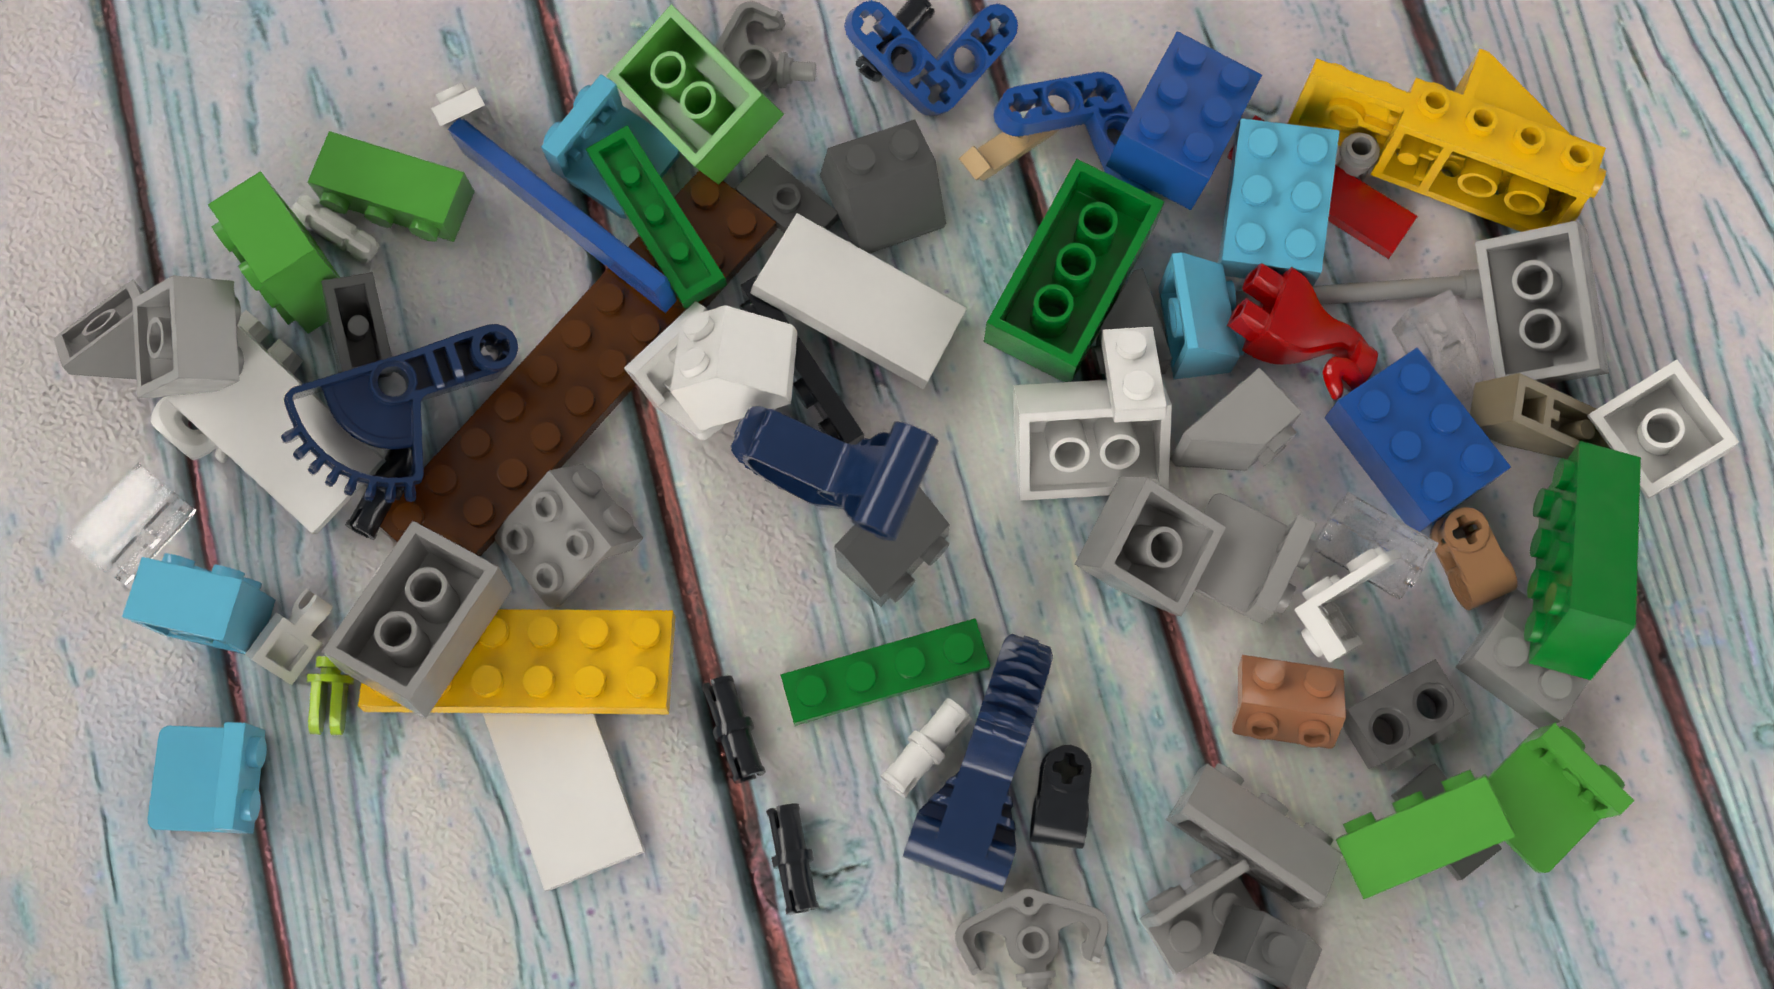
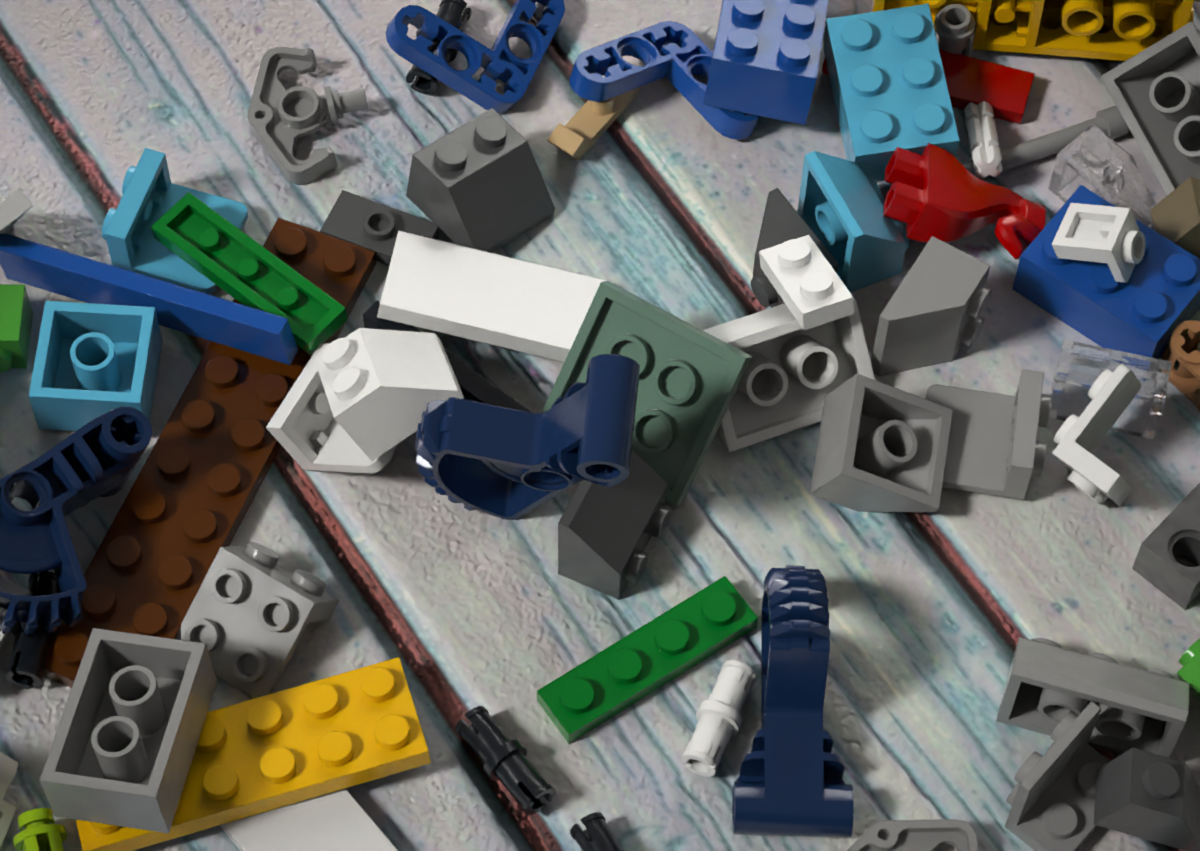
camera: 20 degrees left, 15 degrees down
(501, 266) = (93, 362): none -> medium azure brick
(694, 95) = (252, 144): bright green brick -> none
(980, 423) = (681, 386): none -> sand green plate
(1059, 808) = (881, 729): black piece -> none
(1072, 271) = (706, 211): green brick -> none
(1289, 702) = (1080, 565): nougat bracket -> none
(1347, 270) = (983, 139): none -> white axle
(1413, 412) = (1101, 236): none -> white bracket

